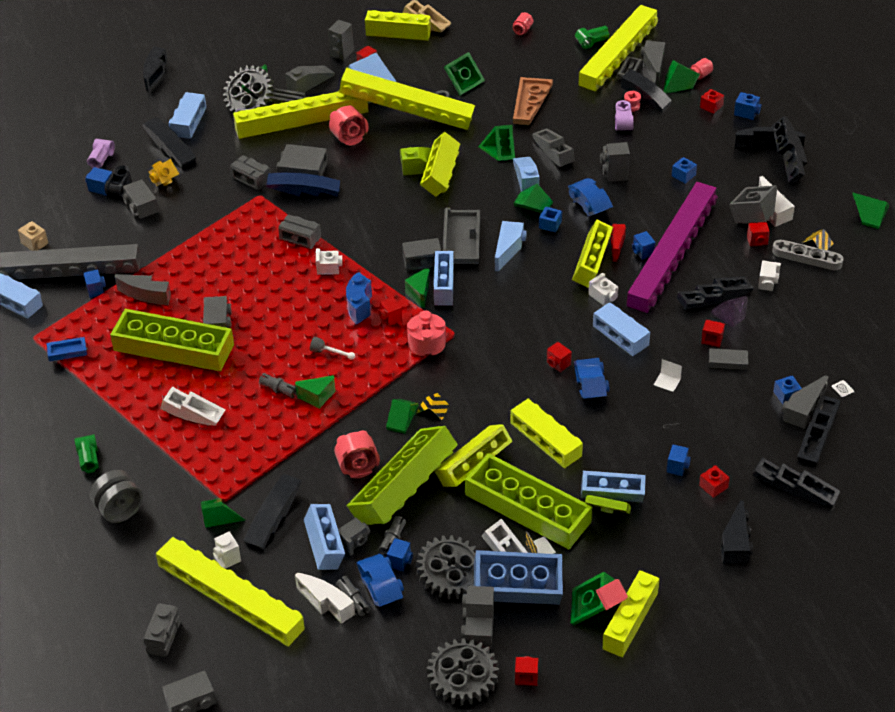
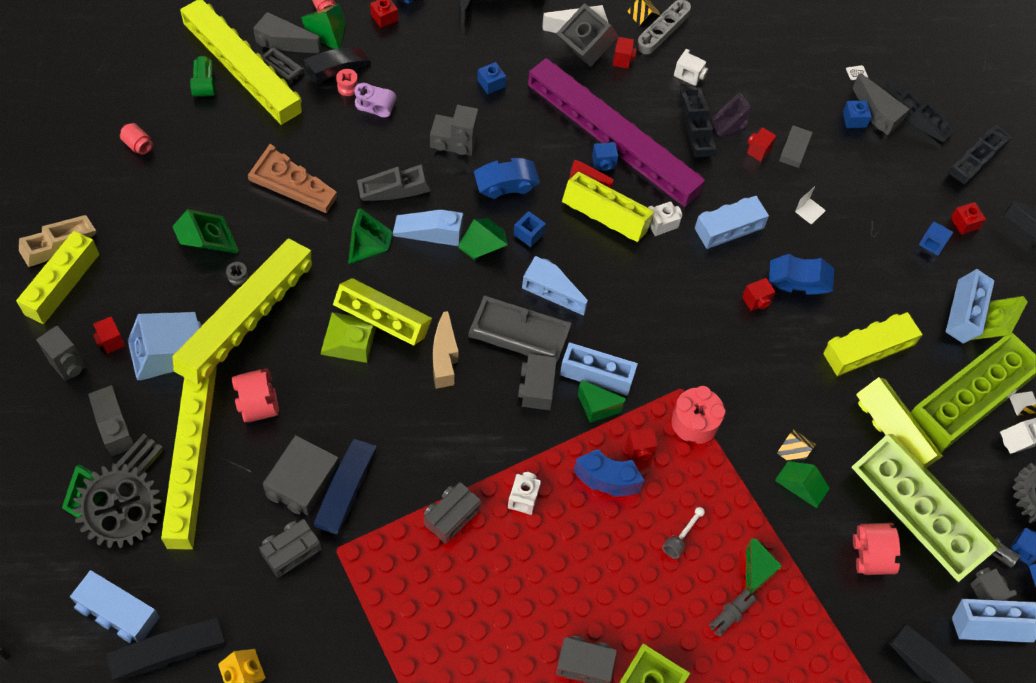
camera: 80 degrees left, 15 degrees up
(425, 203) = (444, 353): none -> tan slope

